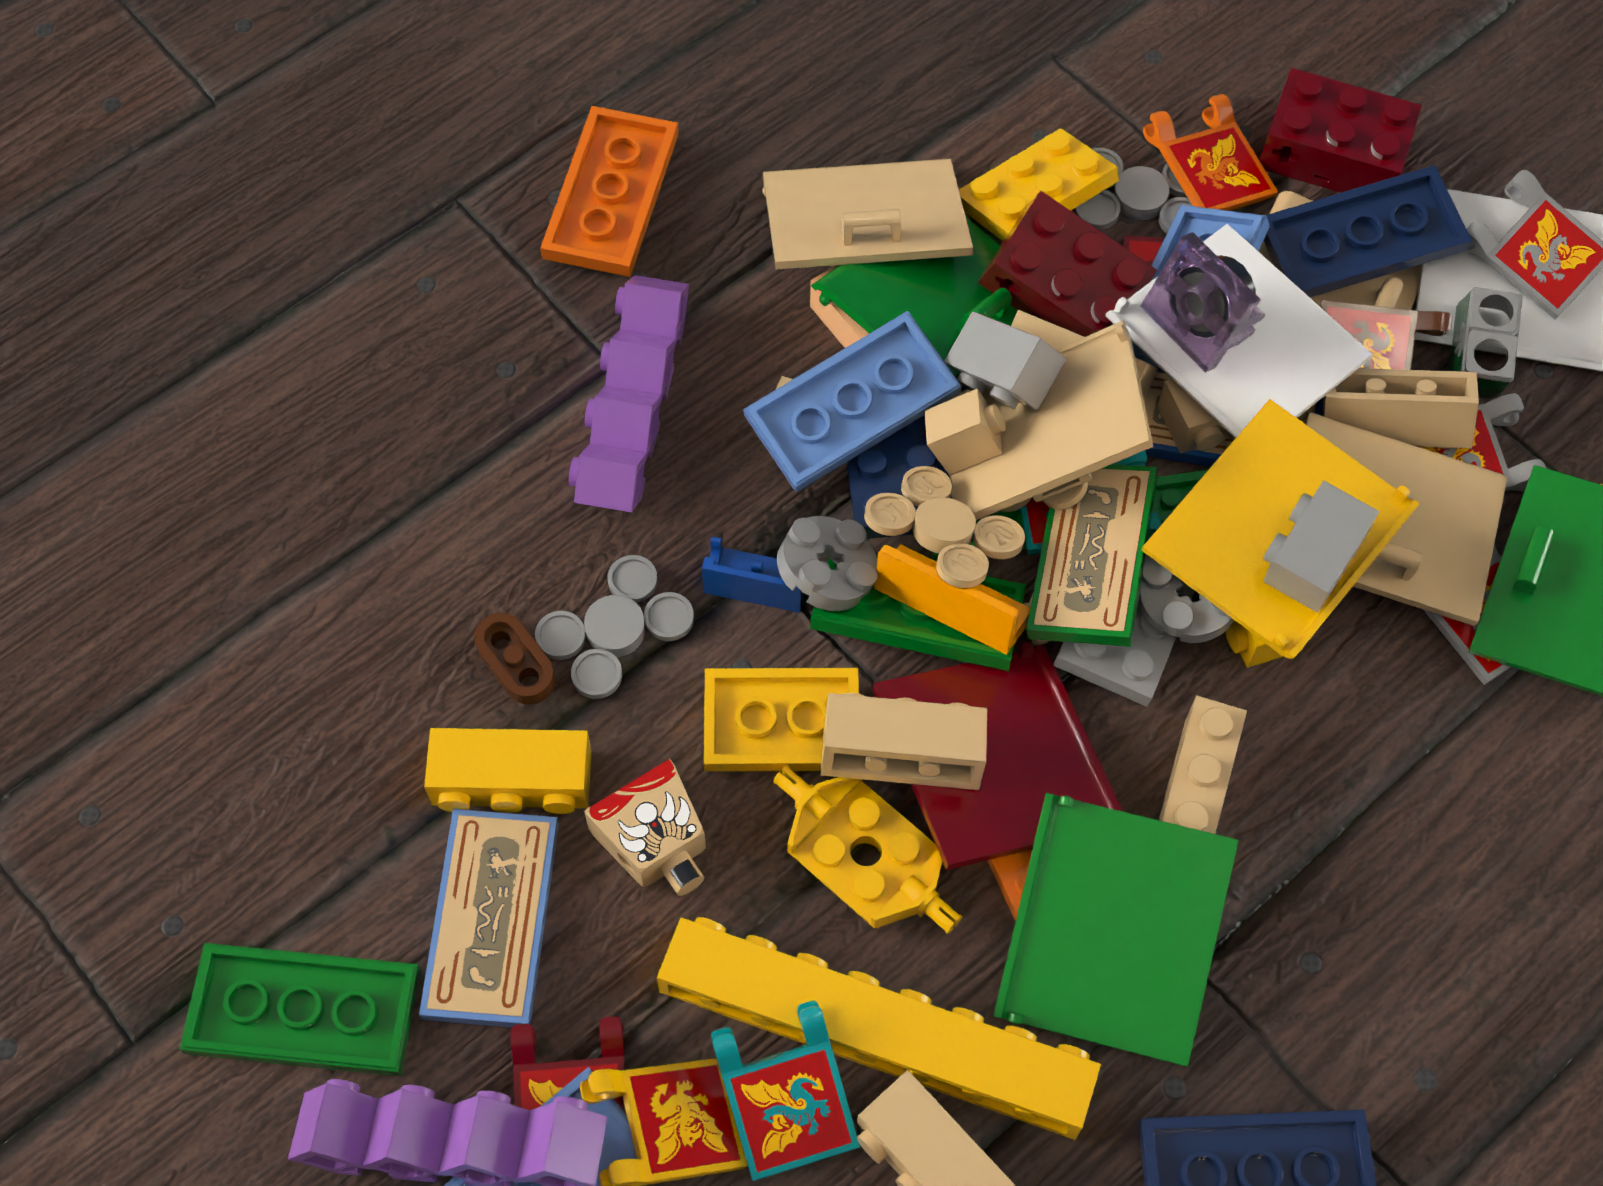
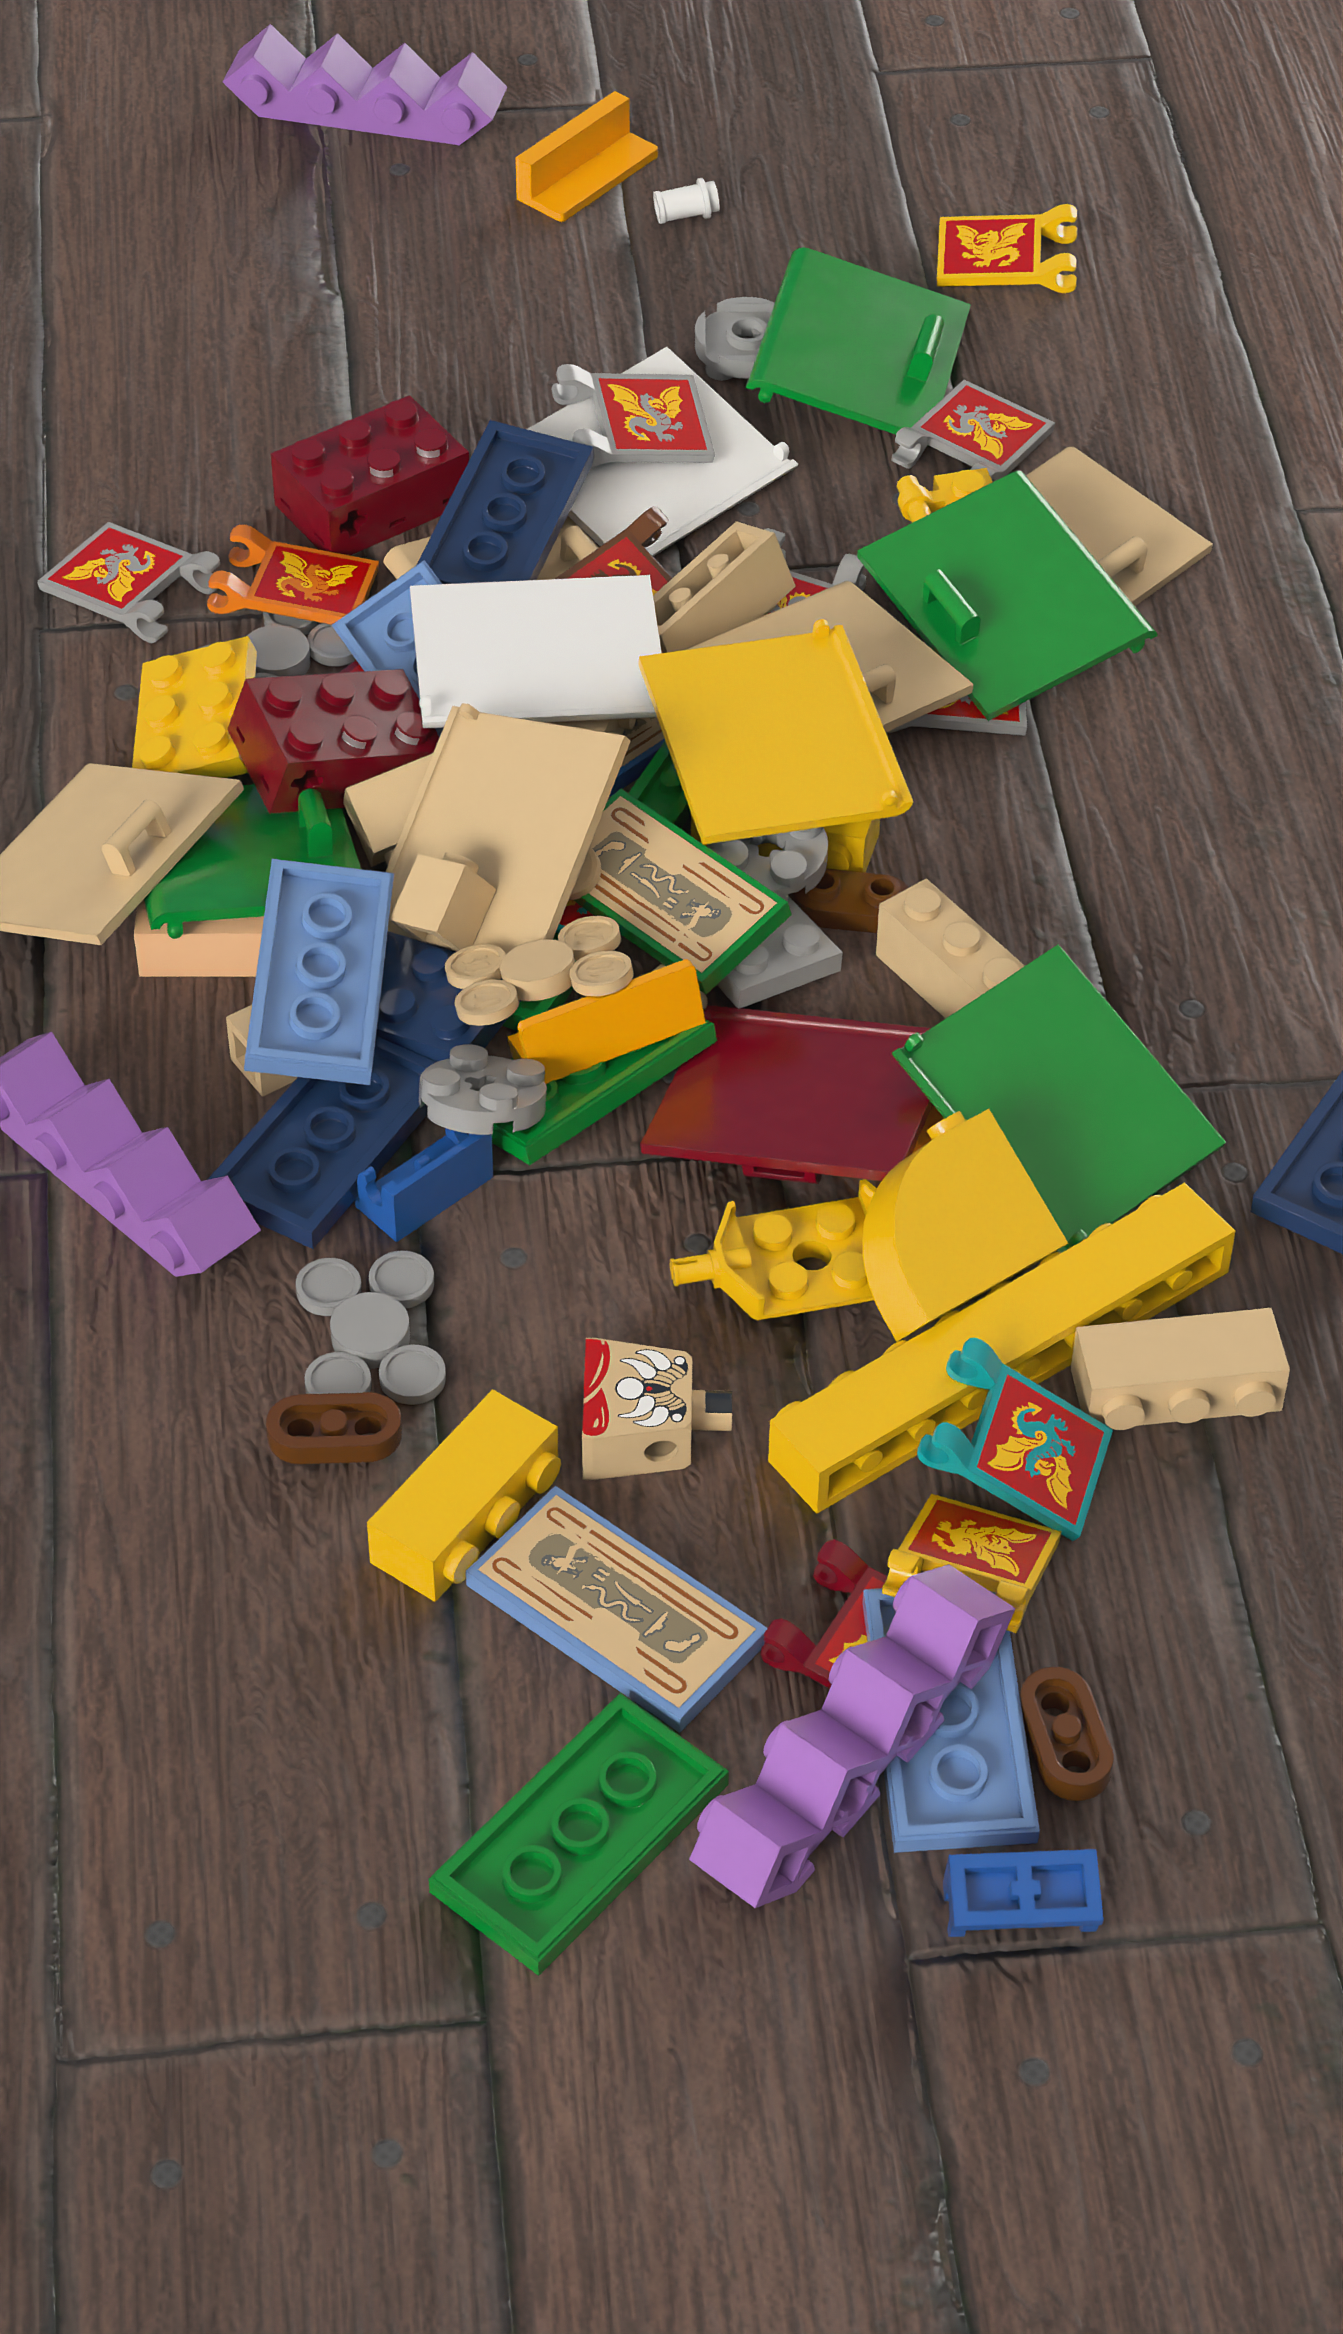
camera: 55 degrees left, 15 degrees down
(735, 498) = (312, 1144): none -> dark blue plate
(769, 716) = (608, 1245): yellow plate -> none
(904, 741) = (740, 1133): tan brick -> none
(932, 930) = (952, 1224): none -> yellow brick
(1005, 361) = (402, 816): light grey brick -> none
(1135, 64) = (123, 573): none -> flag
(1203, 298) = (500, 628): clear purple piece -> none
(1214, 670) = (848, 899): none -> reddish brown plate
(1319, 545) = (833, 700): light grey brick -> none
(1467, 315) = (689, 481): light grey piece -> none

